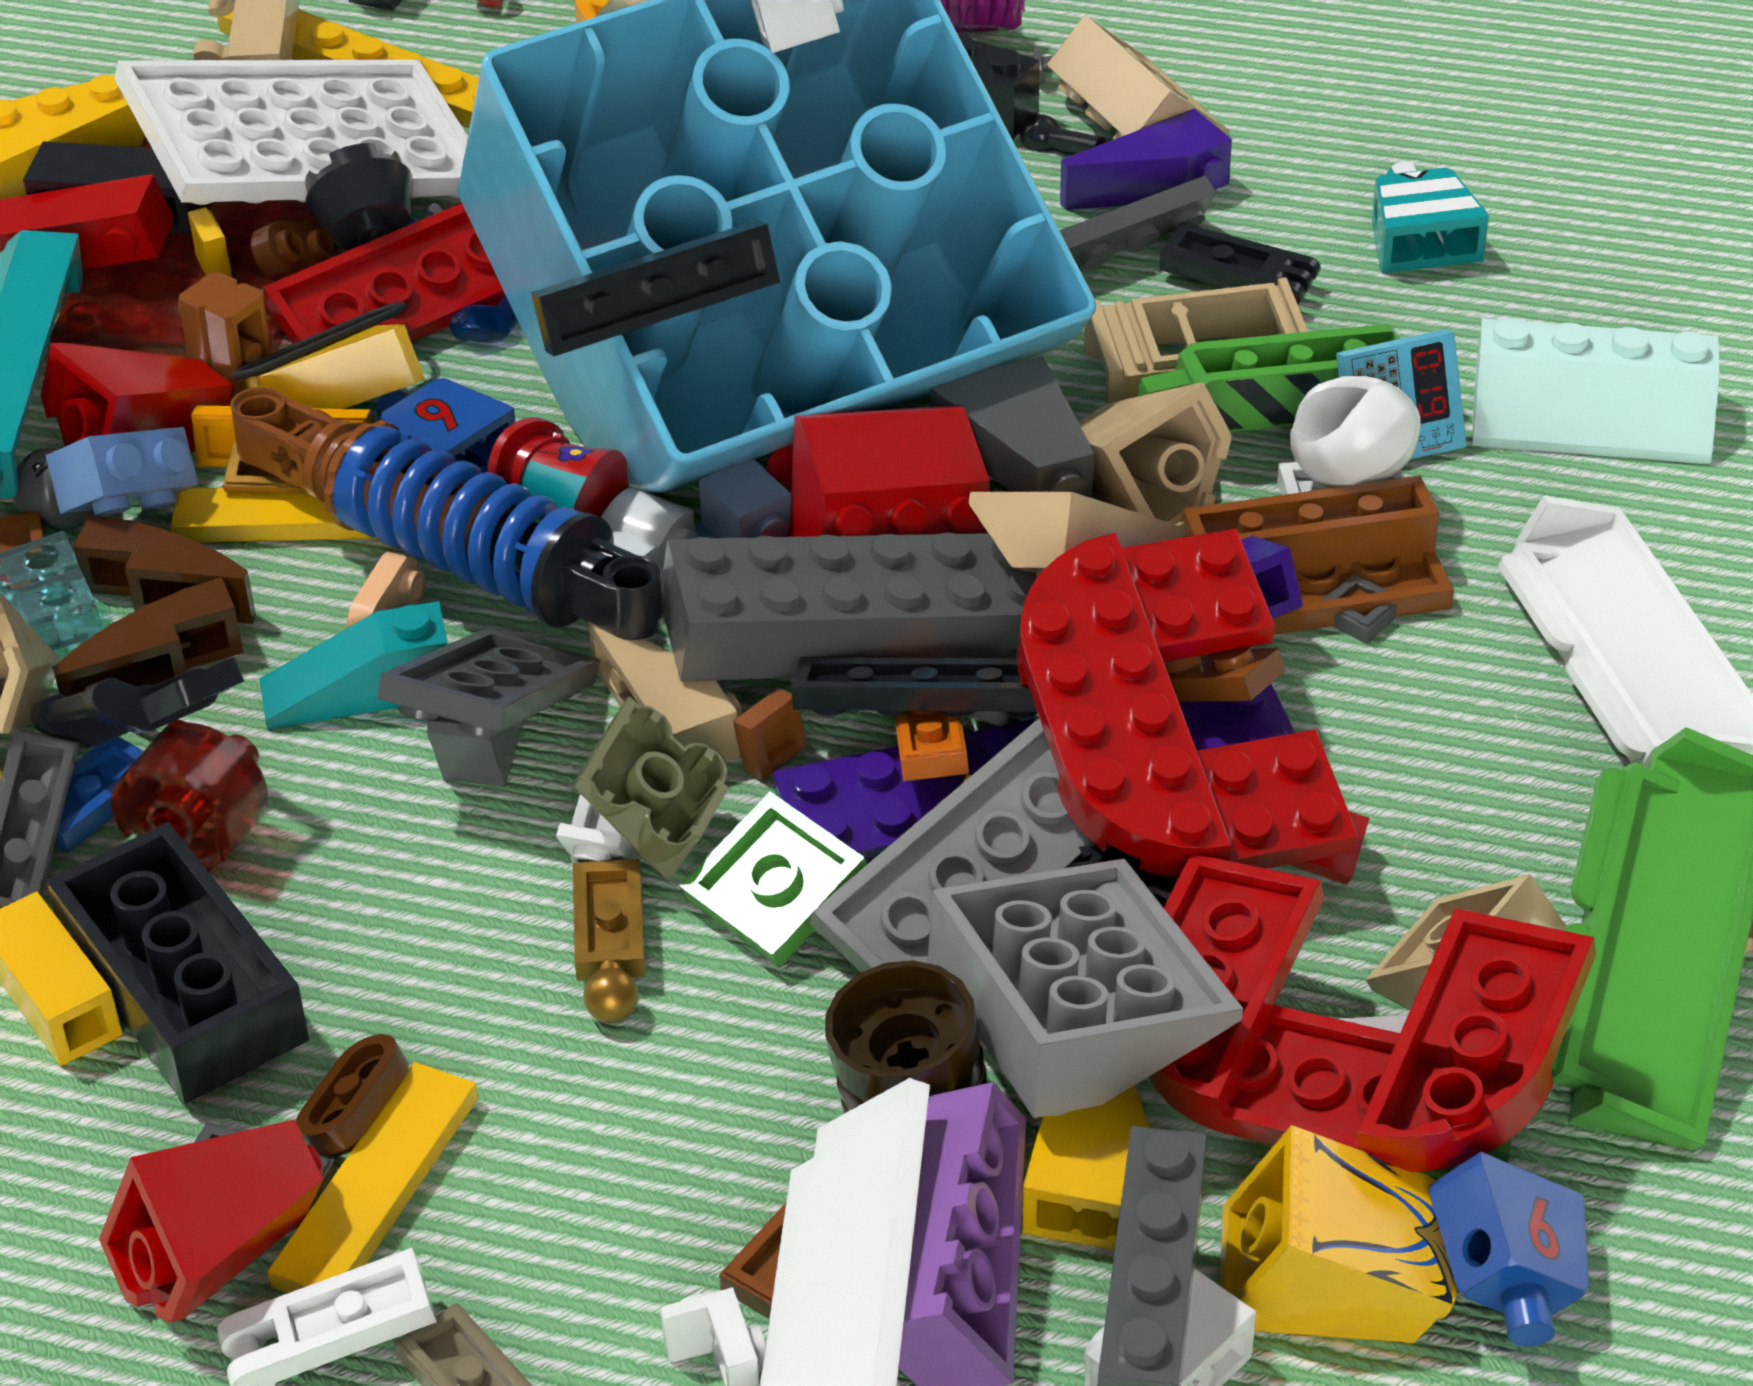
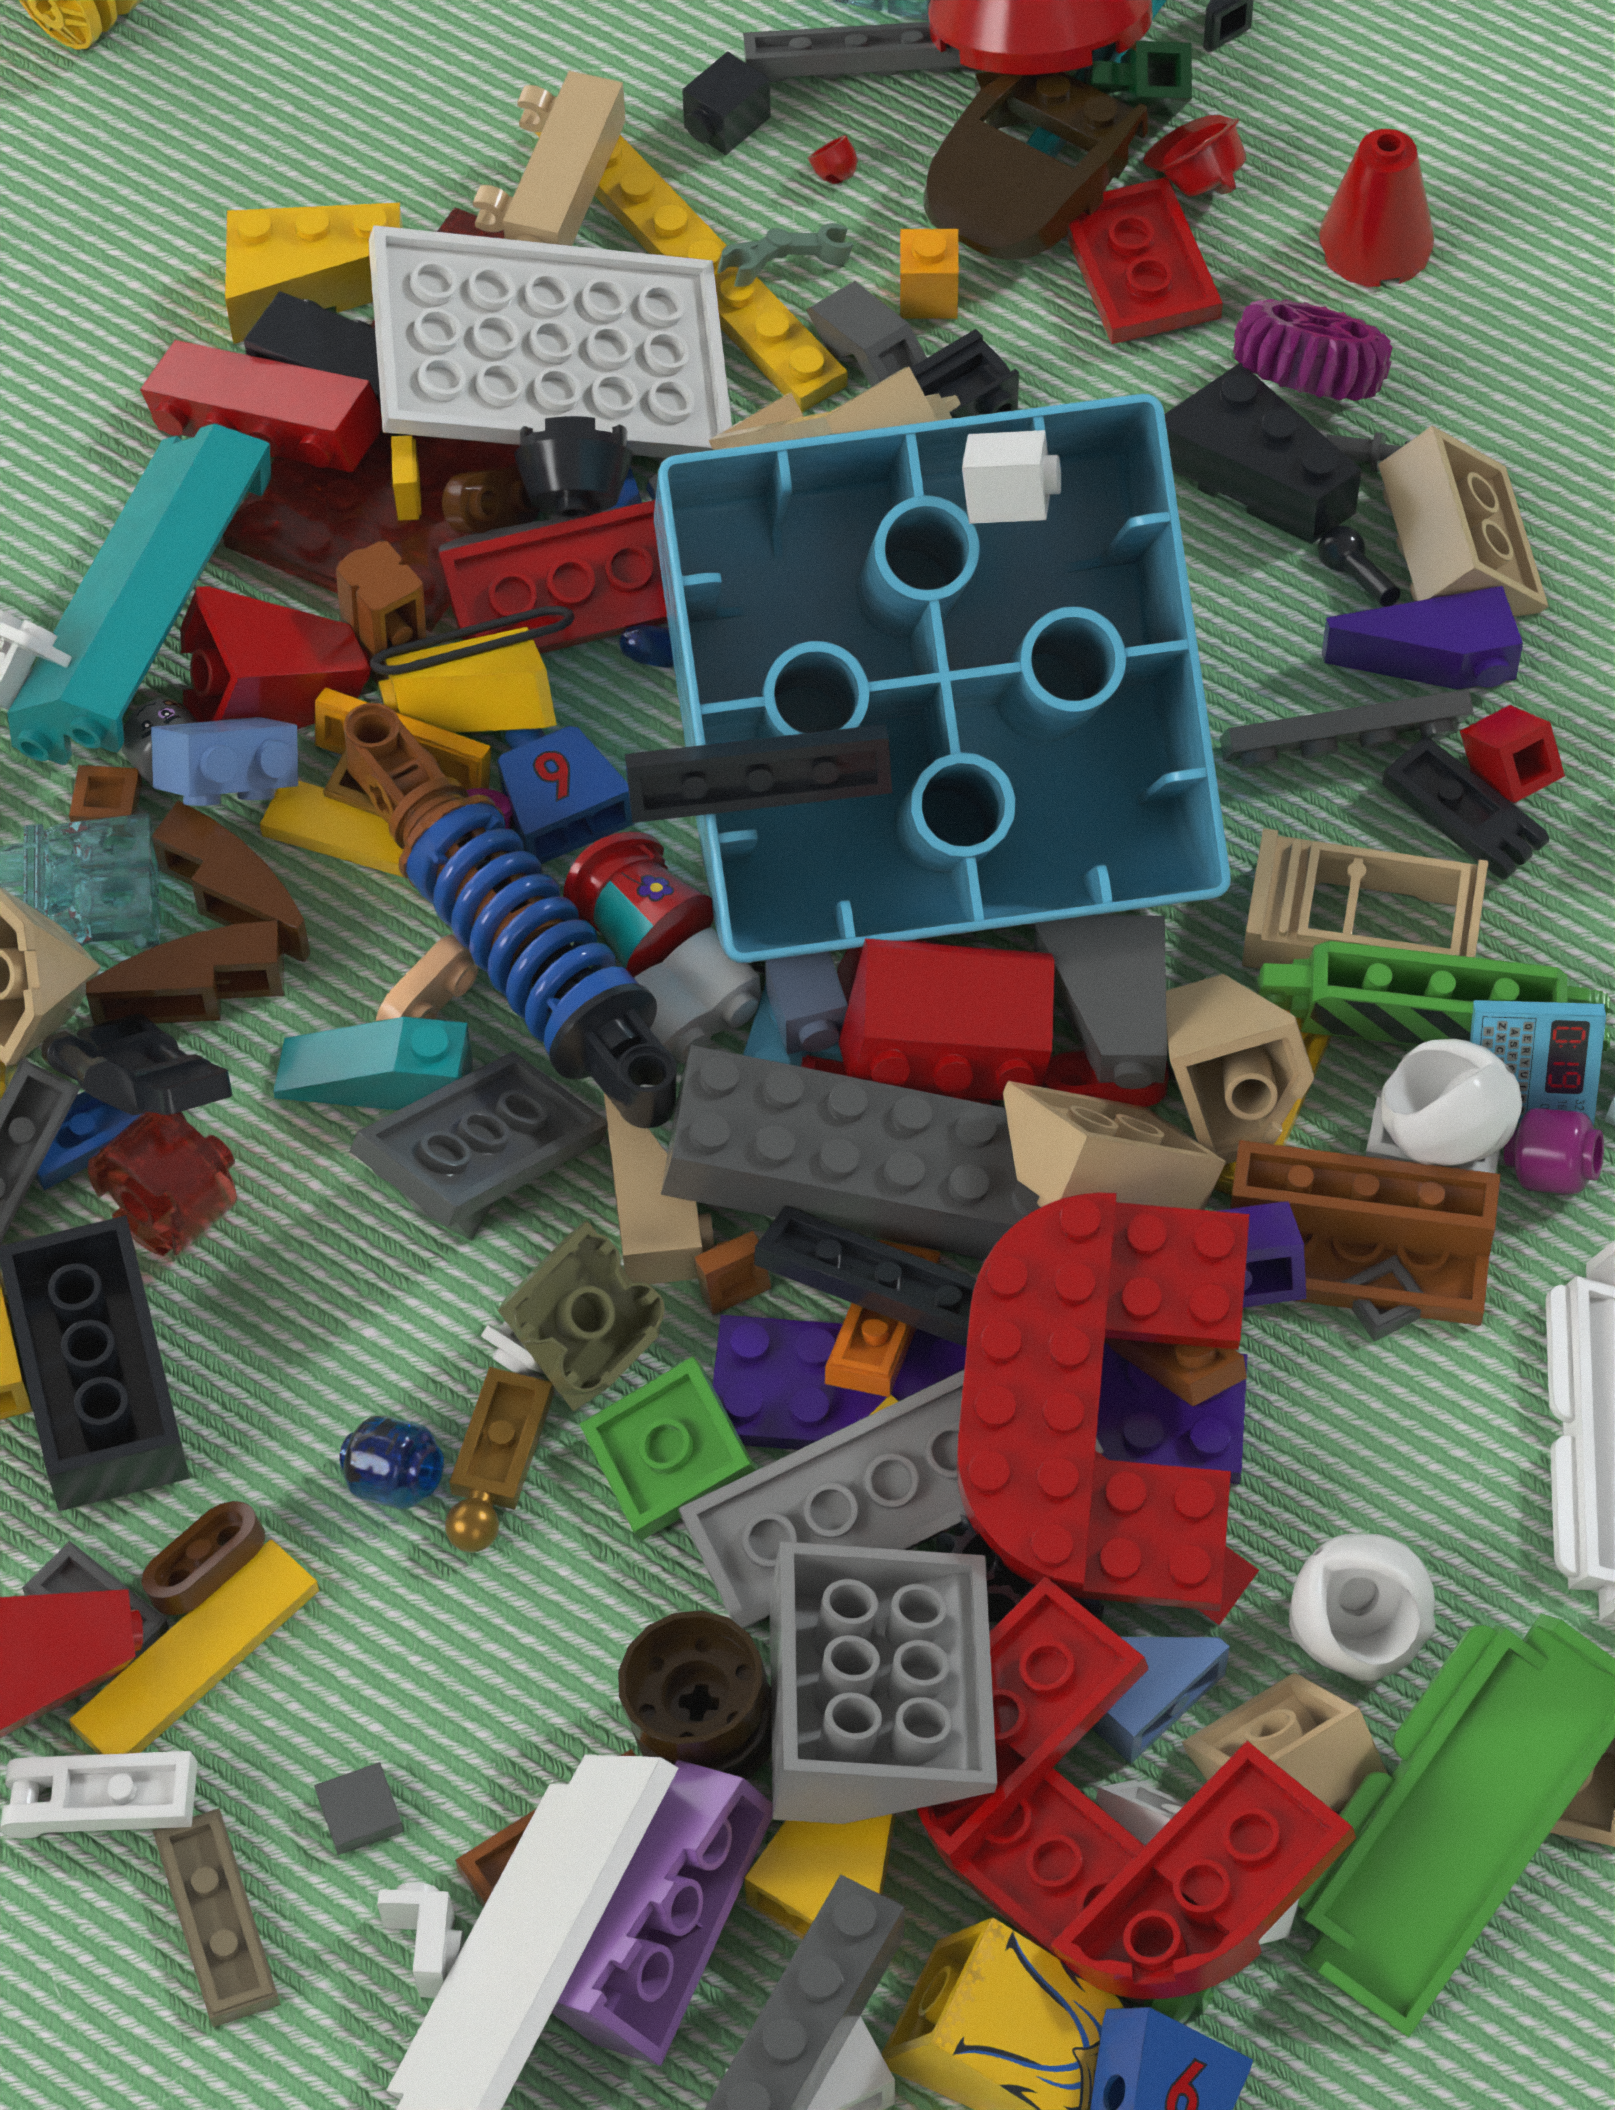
camera: 20 degrees right, 15 degrees up
(453, 51) = (752, 256): none -> sand green piece
(509, 964) = (391, 1462): none -> clear blue head
(600, 1263) = (359, 1808): none -> dark grey tile
(1263, 210) = (1513, 752): none -> red brick
(1332, 941) = (1176, 1679): none -> medium blue slope
(1451, 462) = (1555, 1151): none -> magenta head
(1480, 814) = (1363, 1606): none -> white piece

